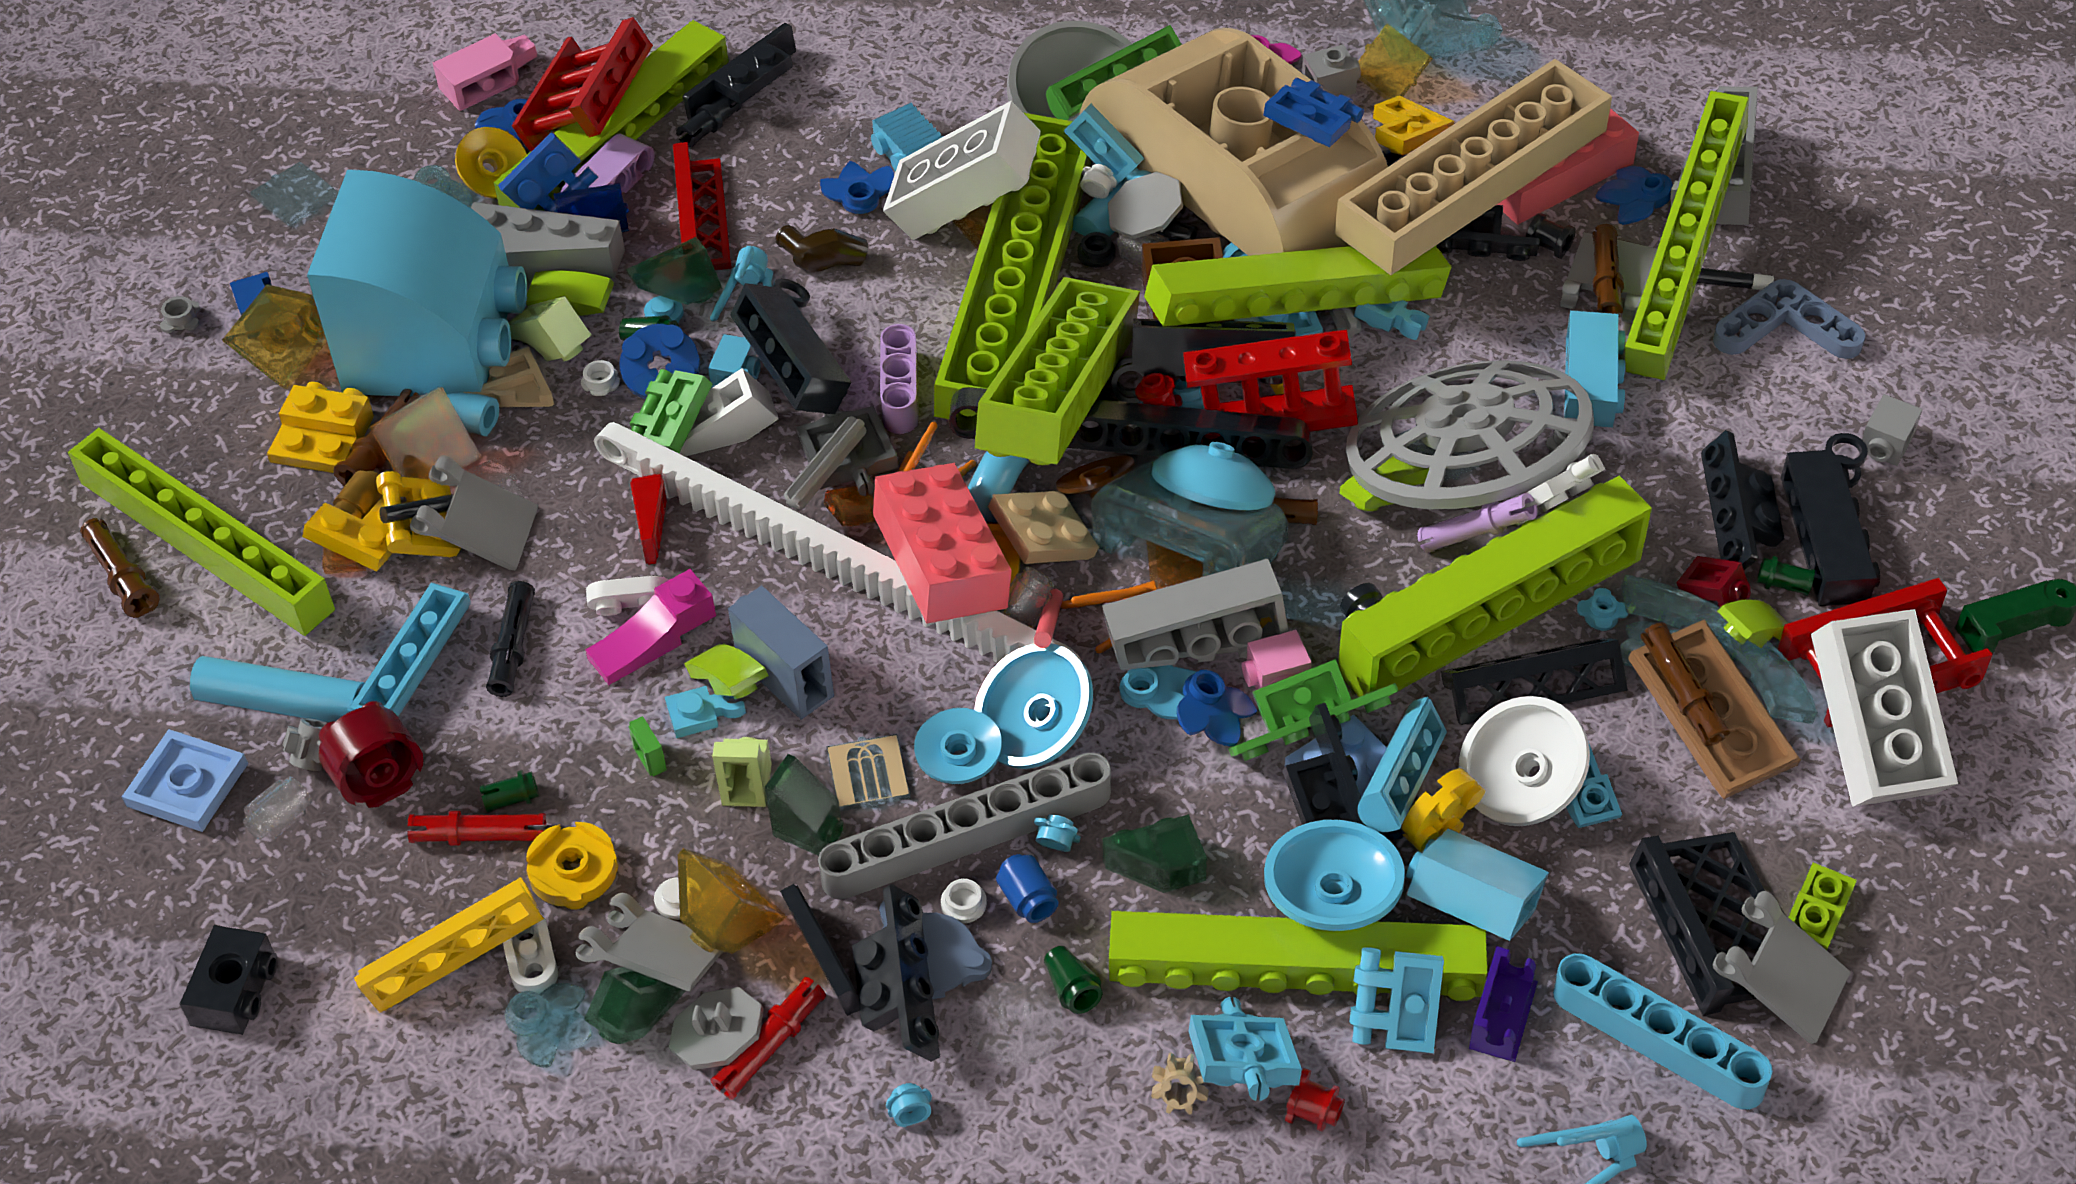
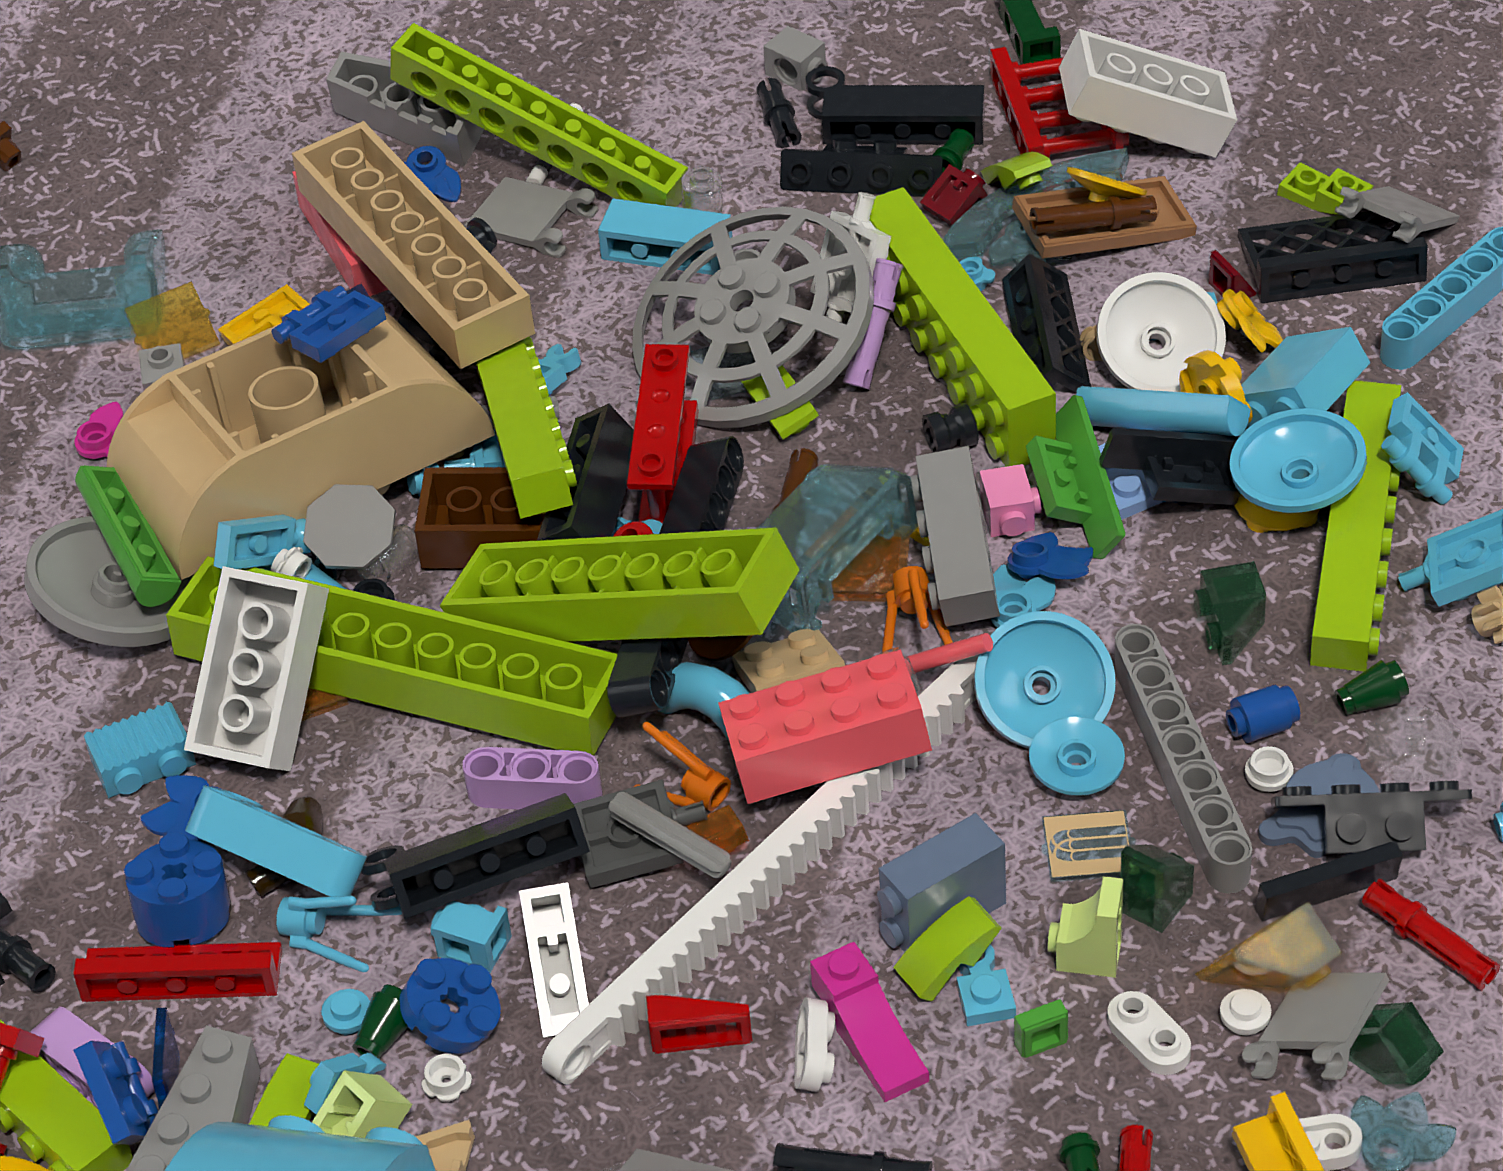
camera: 80 degrees left, 5 degrees down
(575, 886) = (1185, 1131): yellow plate -> none
(584, 307) = (329, 1071): none -> medium azure plate
(657, 829) = (1147, 1029): none -> white plate
(671, 407) = (551, 974): bright green plate -> none
(678, 273) = (306, 972): clear green slope -> none
(716, 1028) = (1423, 970): light grey piece -> none
(760, 187) = (178, 891): none -> blue brick
(809, 199) = (275, 842): none -> medium azure beam
(1056, 832) = (1196, 685): medium azure plate -> none
(1214, 477) = (783, 496): medium azure dish -> none
(1504, 1007) = (1441, 403): dark purple hinge -> none
(1565, 848) = (1241, 313): none -> yellow plate
(1608, 282) = (547, 206): reddish brown pin -> none
(1646, 821) = (1225, 276): none -> dark red slope
(1650, 383) = (702, 190): none -> clear brick
(1735, 687) = (1103, 186): none -> yellow dish
(1792, 312) = (654, 78): sand blue beam -> none
(1806, 431) = (778, 113): none -> black pin

